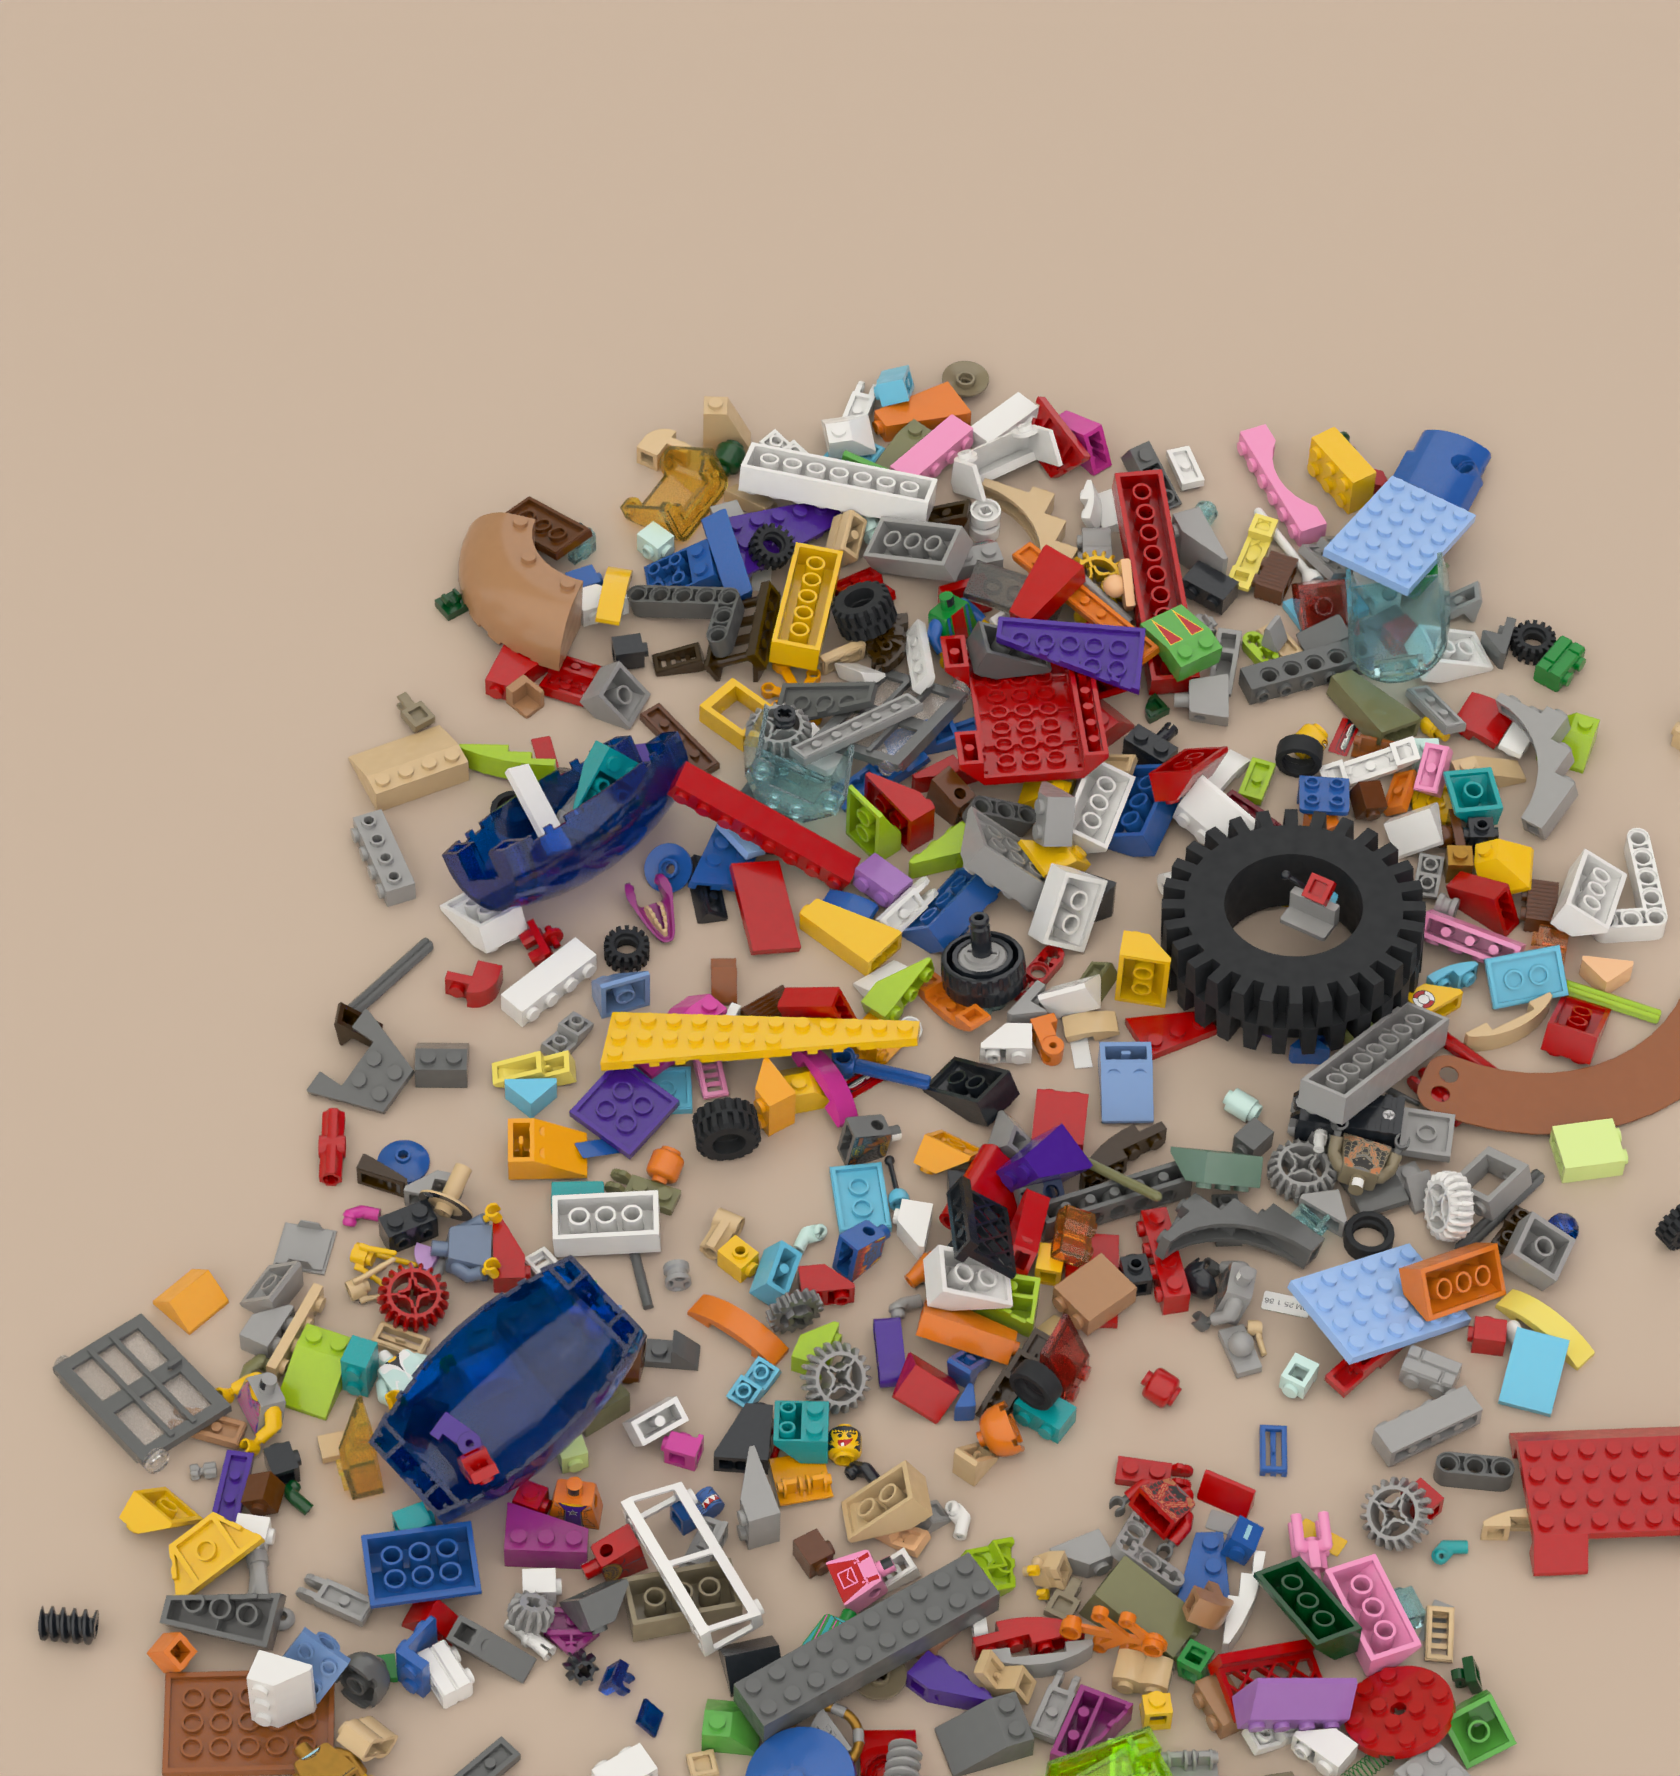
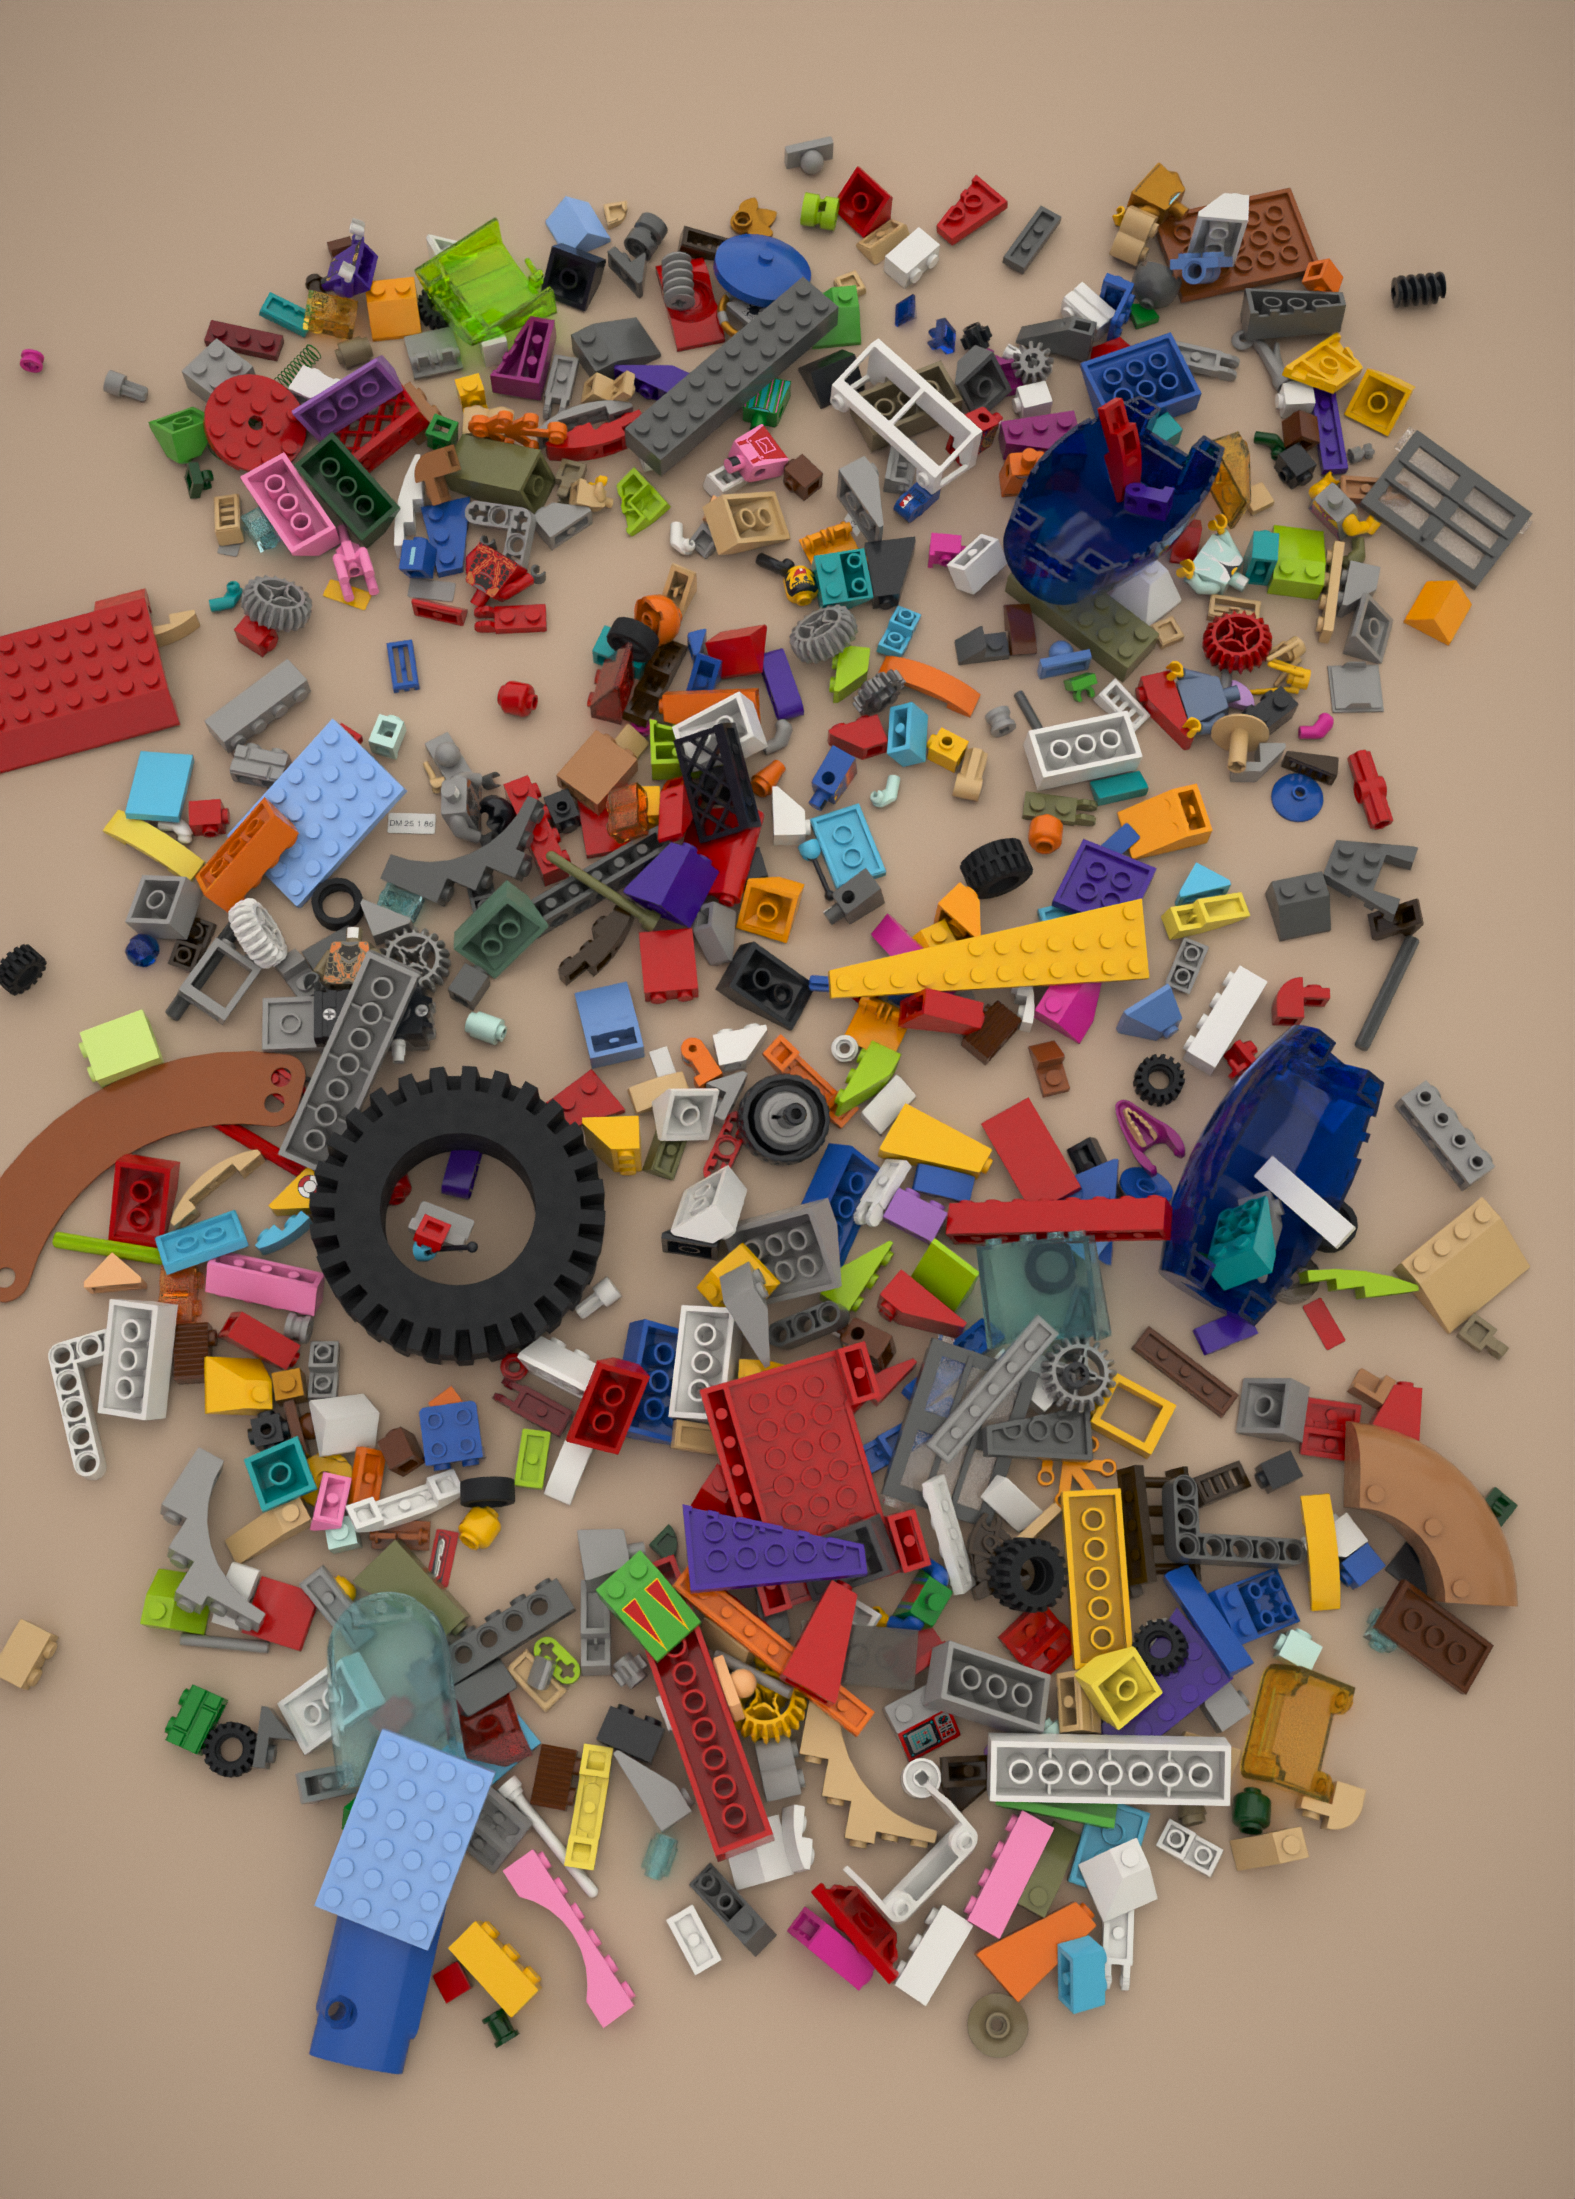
camera: 165 degrees right, 20 degrees up
(817, 524) = (1118, 1685): none -> light yellow slope
(1151, 747) = (657, 1470): black brick -> none
(1461, 1476) = (220, 680): dark grey beam -> none

